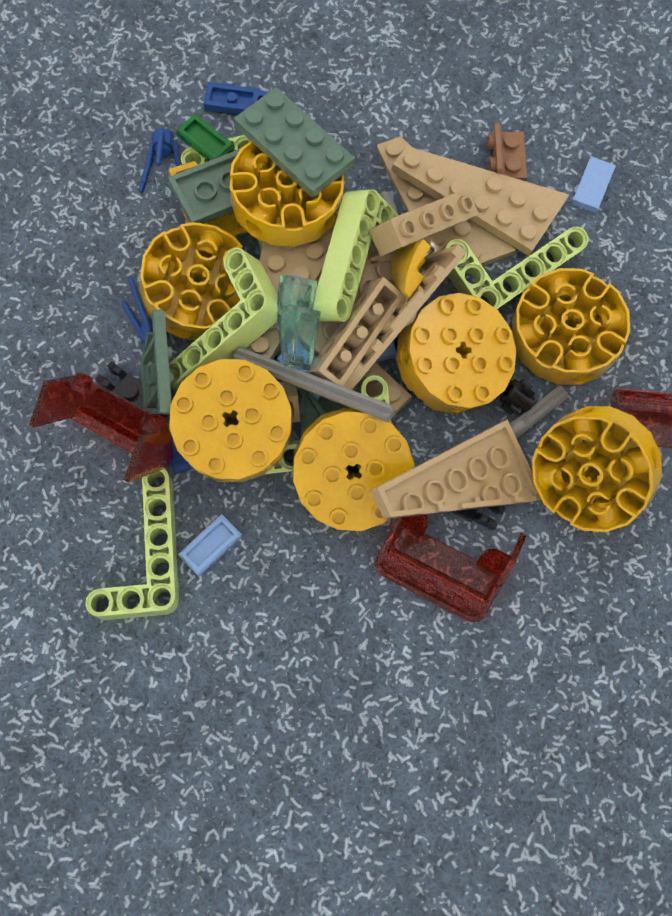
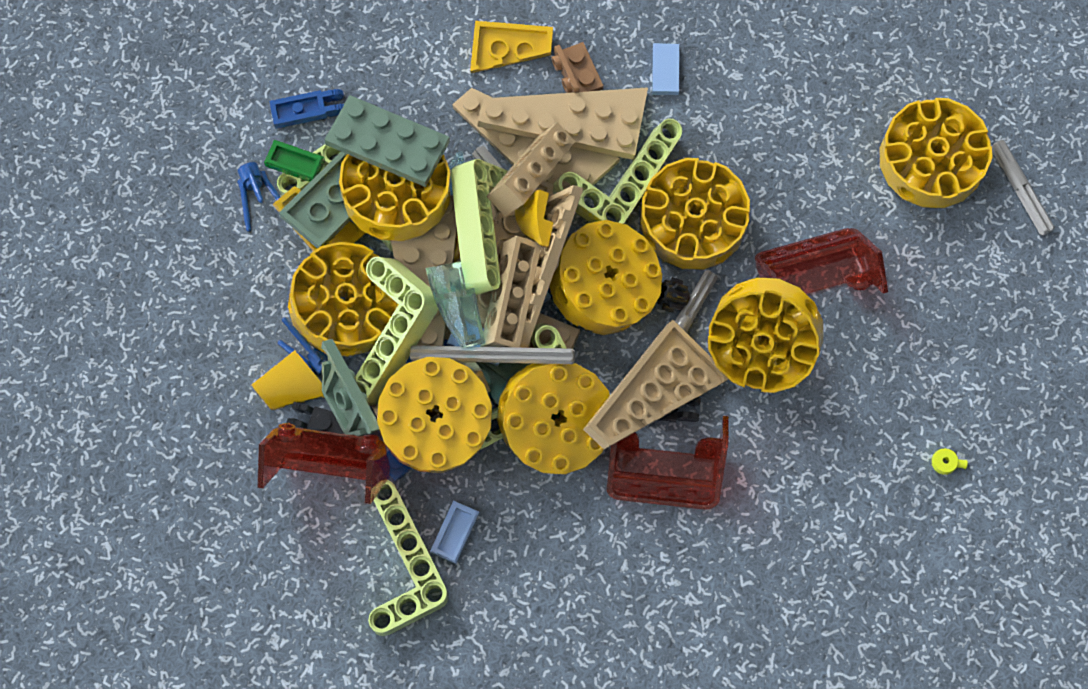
camera: 20 degrees left, 0 degrees up
(112, 341) = (288, 383): none -> yellow slope
(451, 109) = (508, 44): none -> yellow wing

